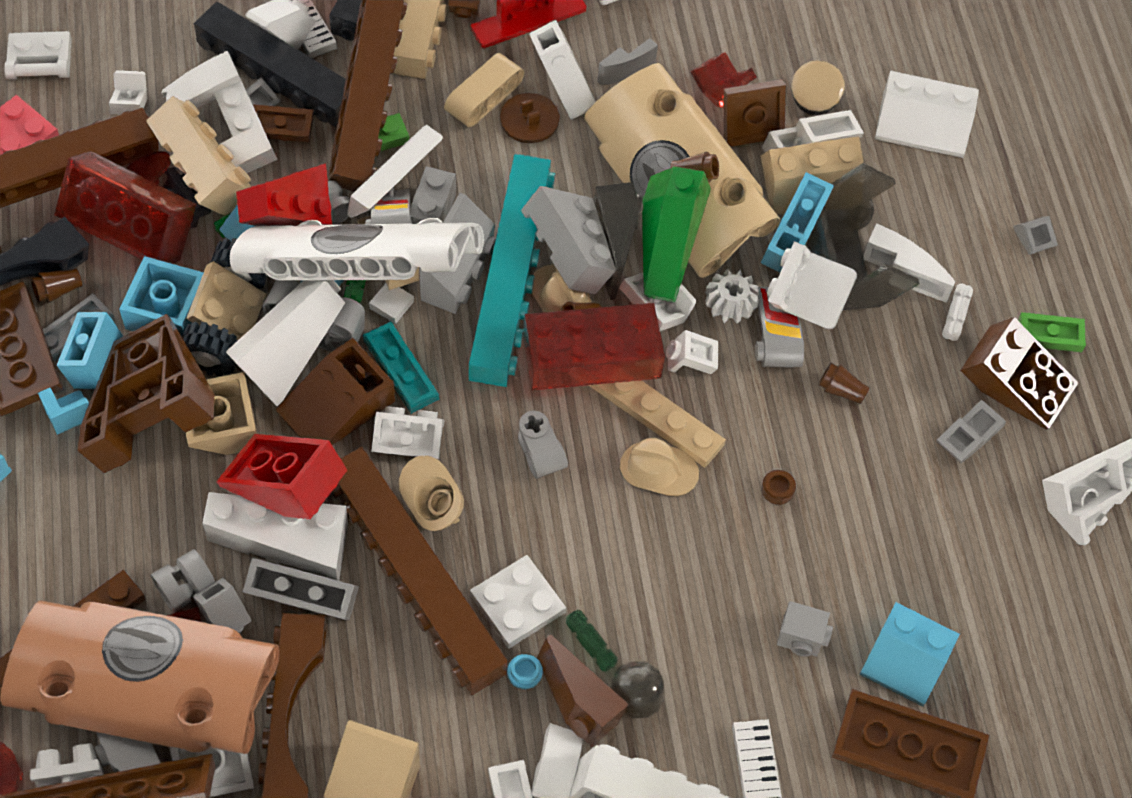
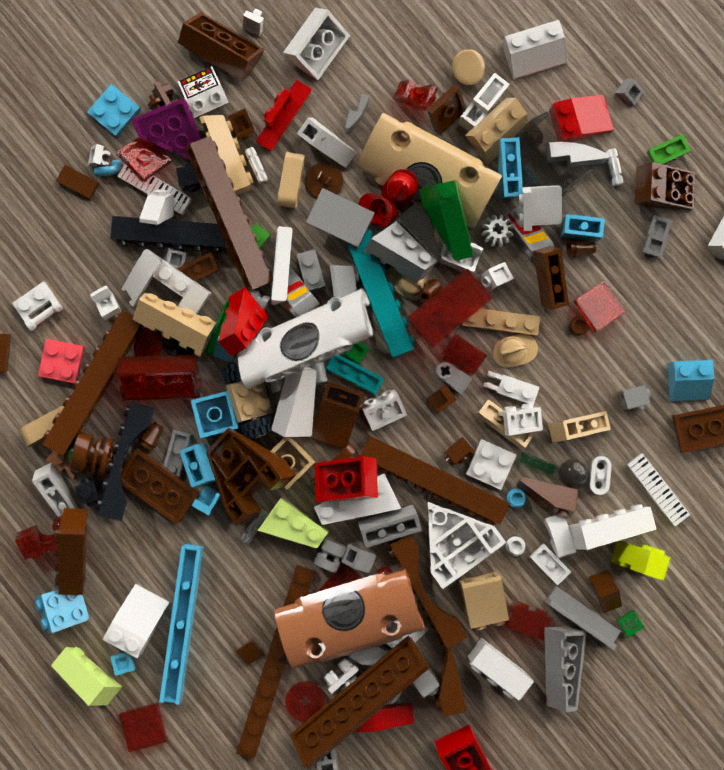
camera: 25 degrees left, 25 degrees up
(105, 482) = (254, 526): none -> light grey axle
(159, 505) = (293, 524): none -> yellowish green wedge
(388, 677) = (458, 543): none -> white wedge
(424, 340) = (357, 353): none -> green tile
(431, 493) = (419, 439): tan piece -> none
(450, 52) = (256, 165): none -> white axle
(476, 742) = (515, 546): none -> white plate
(479, 550) = (458, 452): none -> reddish brown brick
(504, 470) = (441, 399): none -> reddish brown panel
(517, 156) = (340, 218): none -> light grey tile
(576, 423) = (463, 355): none -> clear red brick
(576, 554) = (489, 414): none -> tan plate
(578, 175) = (384, 209): none -> red piece
(604, 555) = (521, 420): none -> white bracket
(621, 514) = (513, 388): none -> white hinge
(626, 163) = (400, 187): none -> red piece
(678, 714) = (601, 475): none -> white plate
(689, 620) = (579, 426): none -> tan slope
(702, 162) = (446, 173): reddish brown cone -> none
(772, 386) = (551, 277): none -> reddish brown brick
(825, 475) = (599, 306): none -> clear red tile
(860, 353) = (582, 228): none -> medium azure brick
(945, 224) = (580, 118): none -> slope

